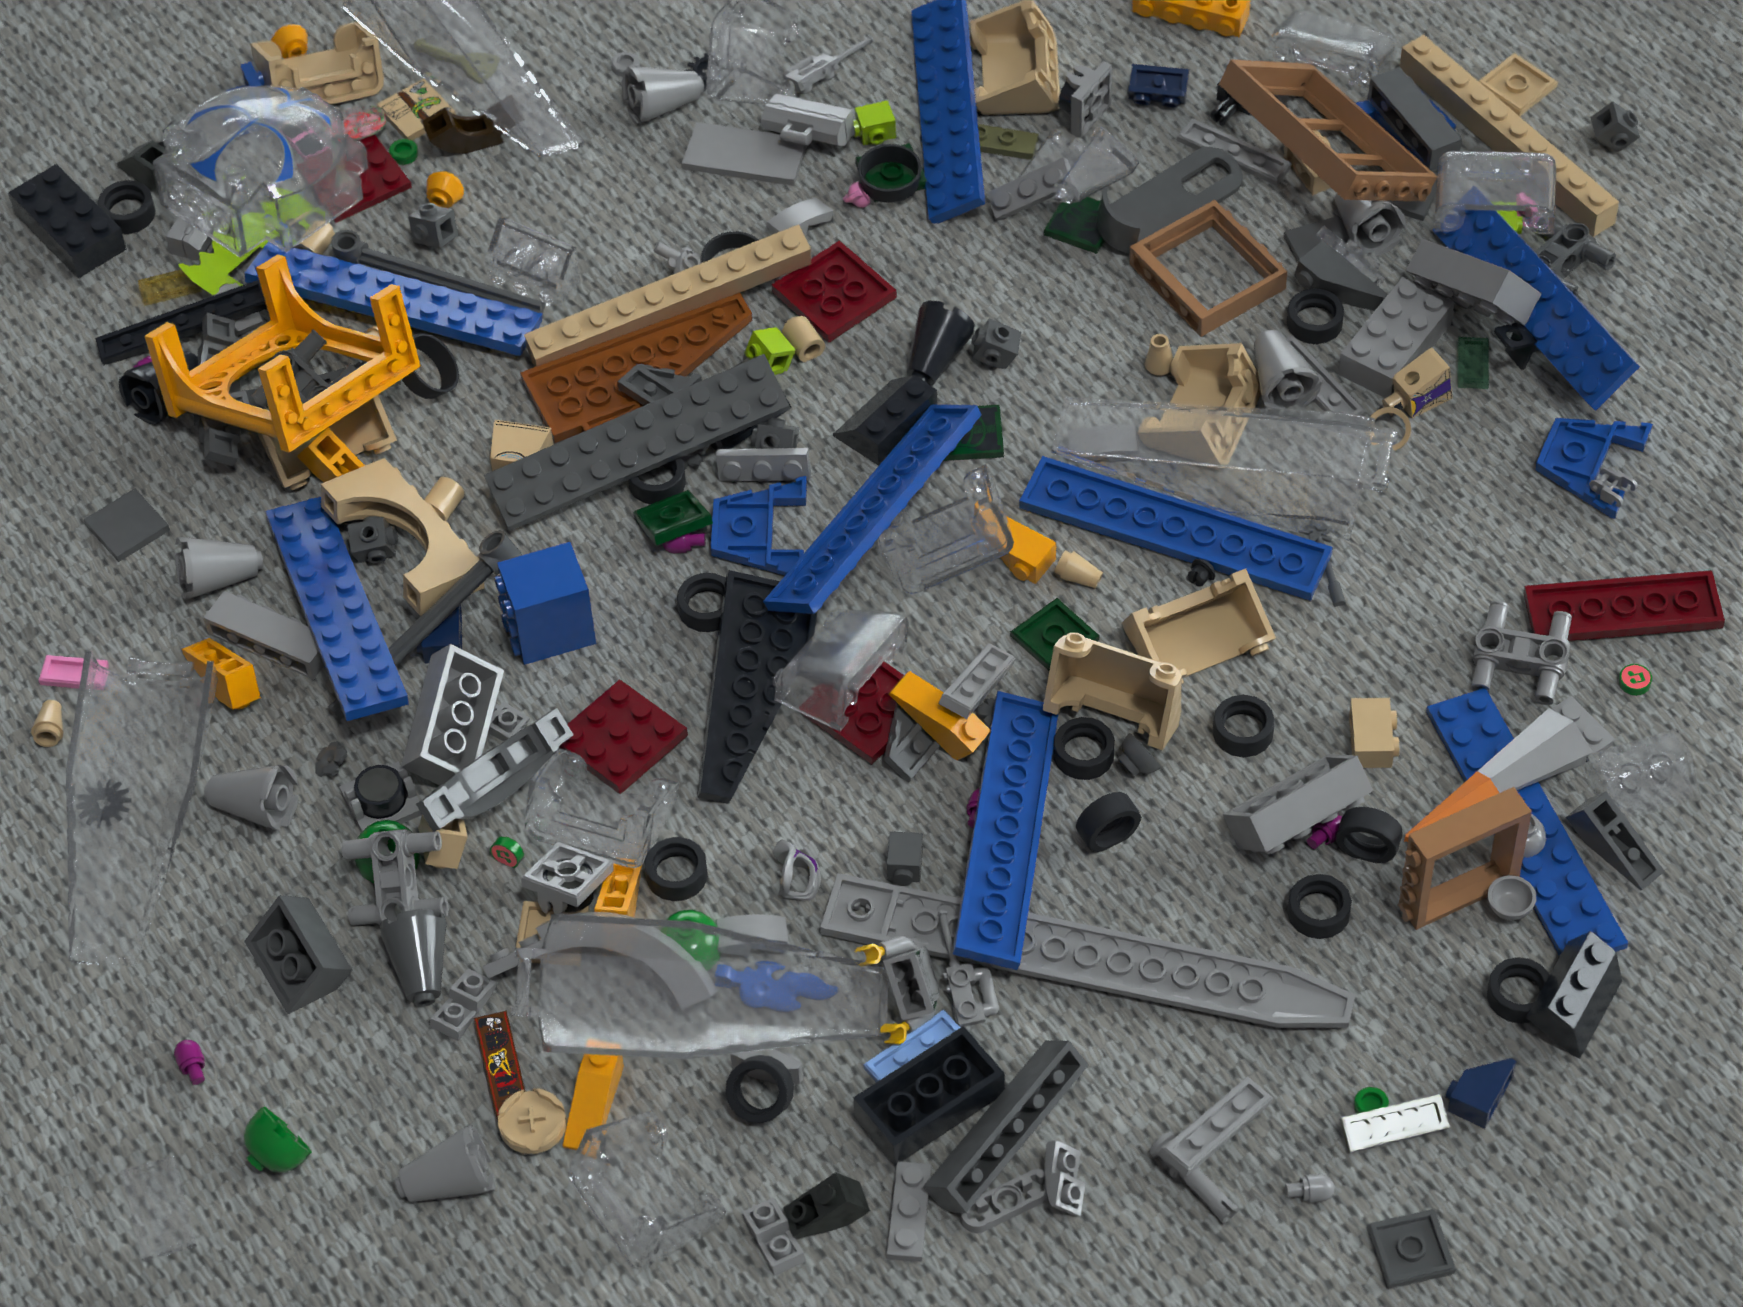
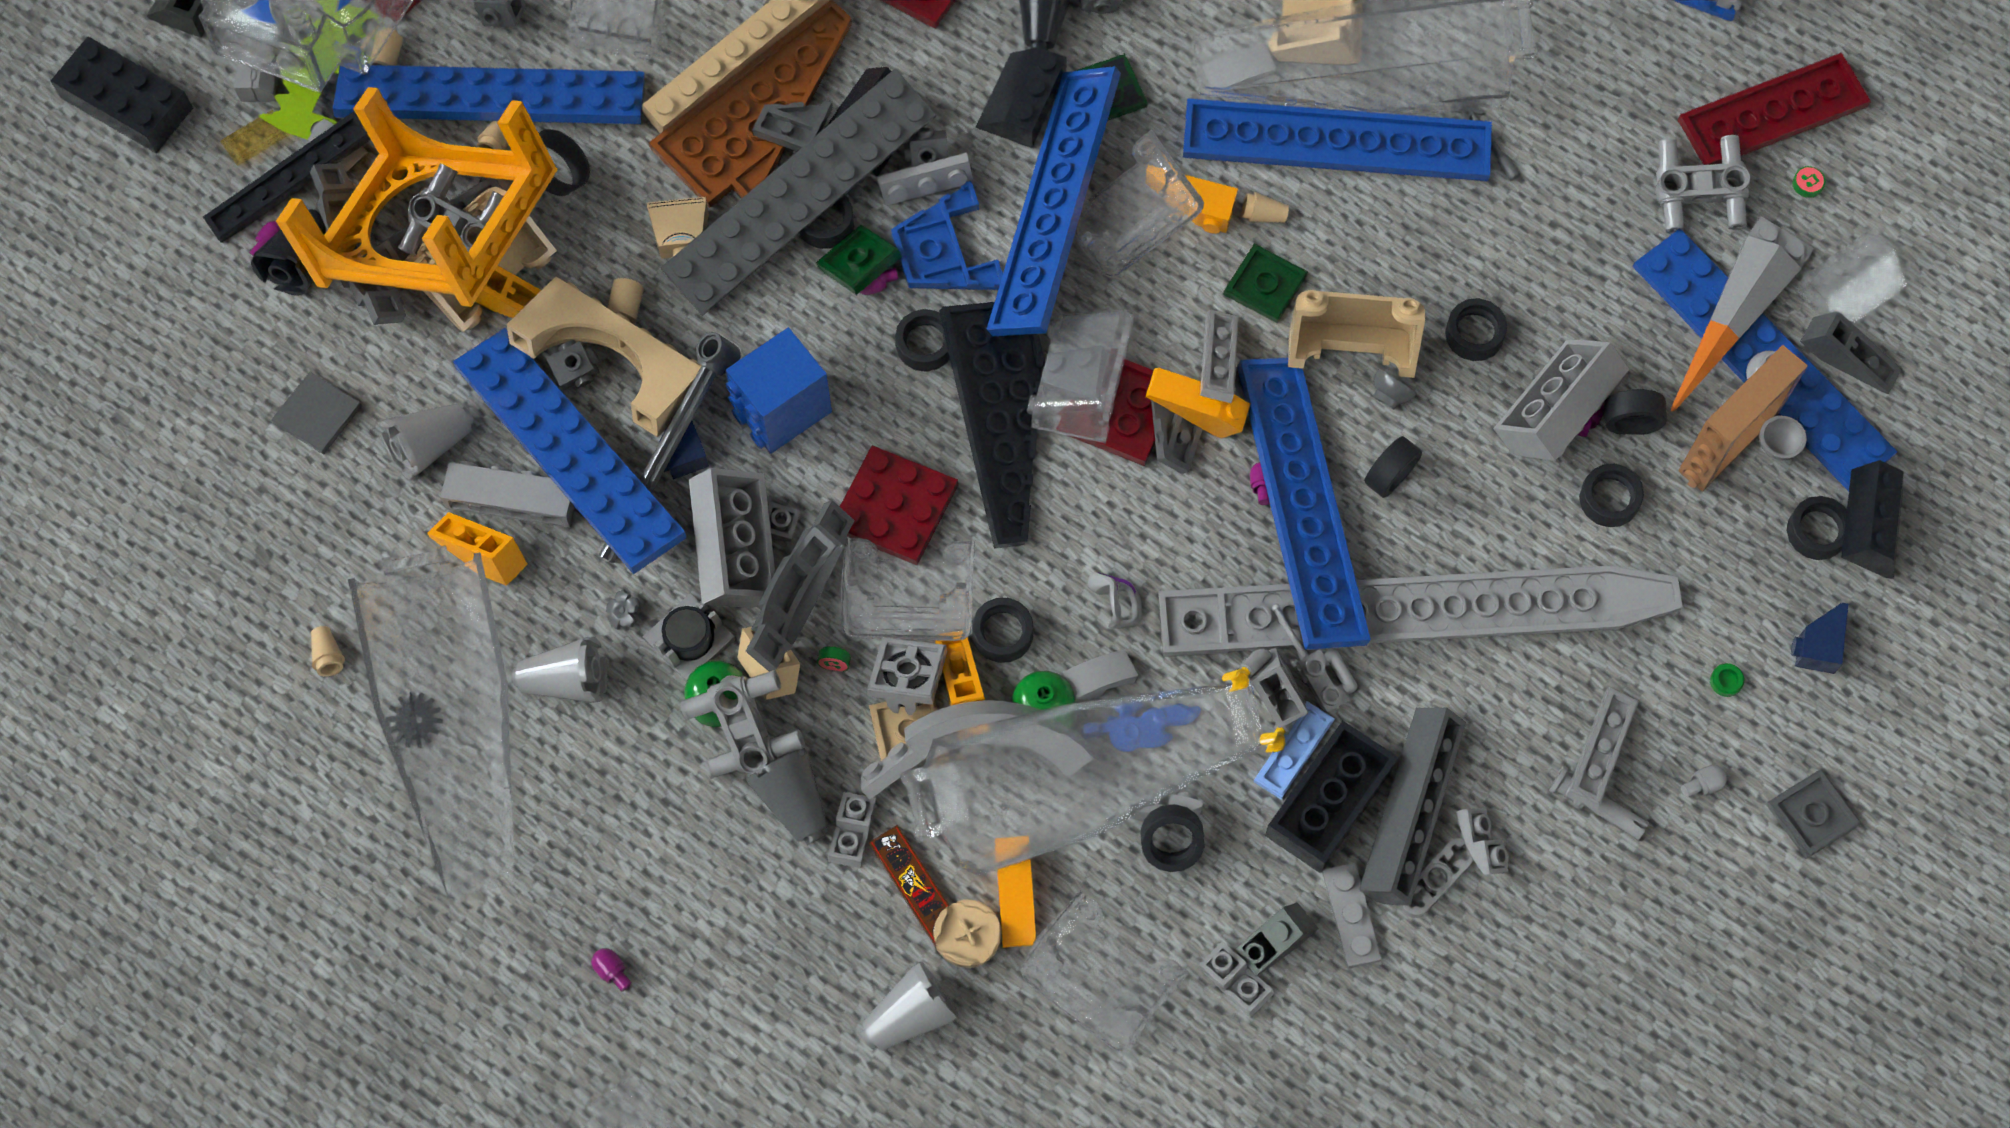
camera: 20 degrees left, 15 degrees up
(63, 671) = (324, 588): bright pink tile -> none
(126, 190) = (173, 42): black tyre -> none
(273, 1143) = (729, 1033): green cylinder -> none
(297, 953) = (672, 826): dark grey slope -> none
(348, 247) = (438, 55): dark grey piece -> none
(774, 346) = (885, 51): lime brick -> none
(803, 338) = (910, 32): tan brick -> none
(904, 857) = (1214, 556): dark grey brick -> none
(1089, 768) = (1342, 372): black tyre -> none
(1201, 572) = (1378, 179): black piece -> none
(1203, 626) = (1402, 238): tan windscreen -> none
(1372, 732) = (1596, 304): tan brick -> none
(1394, 1123) = (1757, 695): plate -> none

